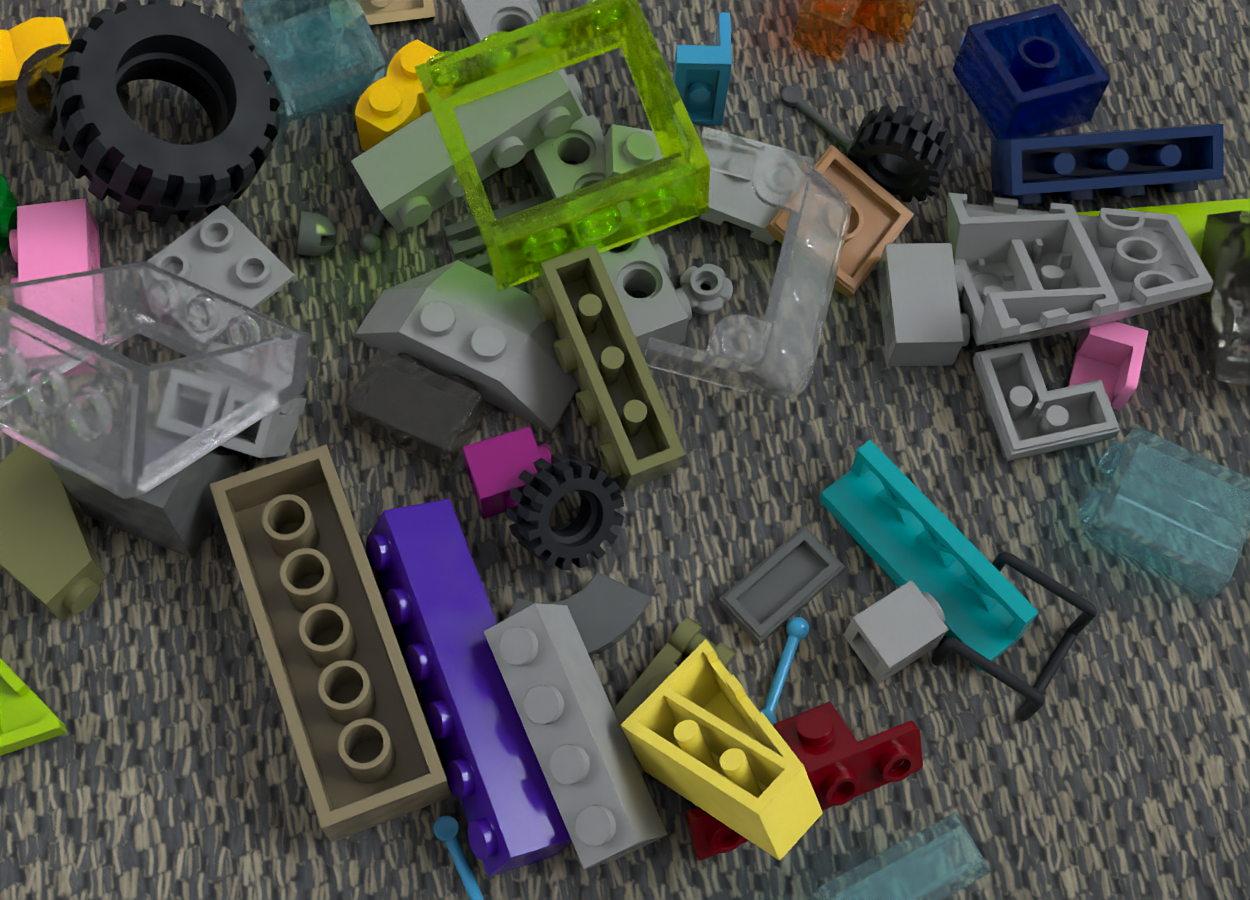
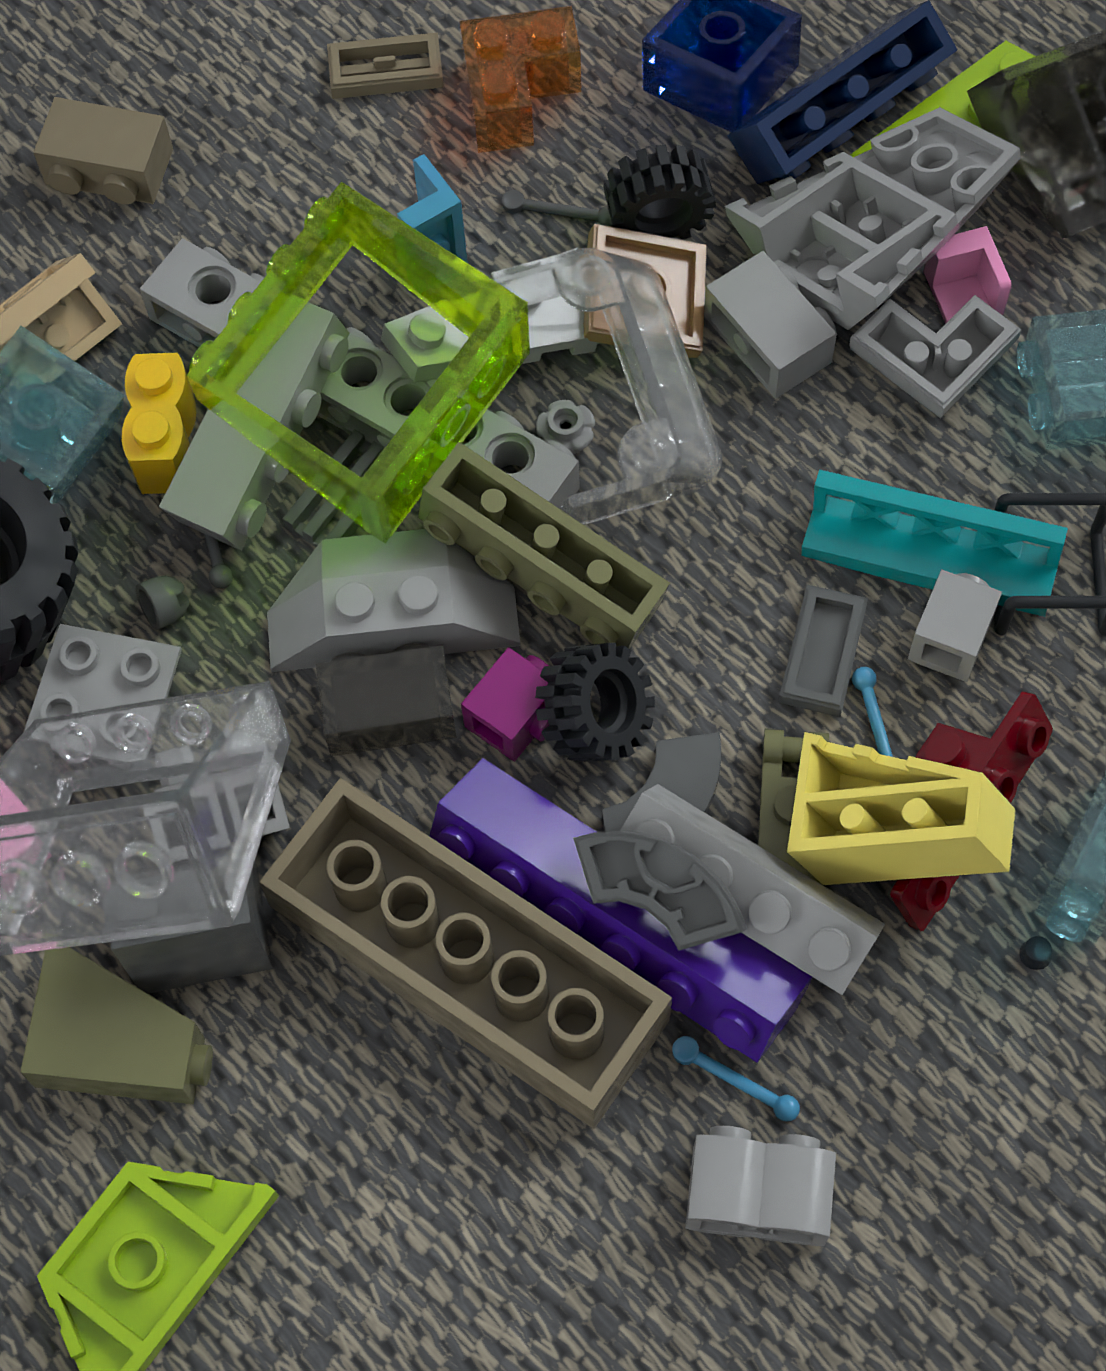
camera: 25 degrees left, 0 degrees up
(501, 684) = (661, 880): none -> dark grey tile

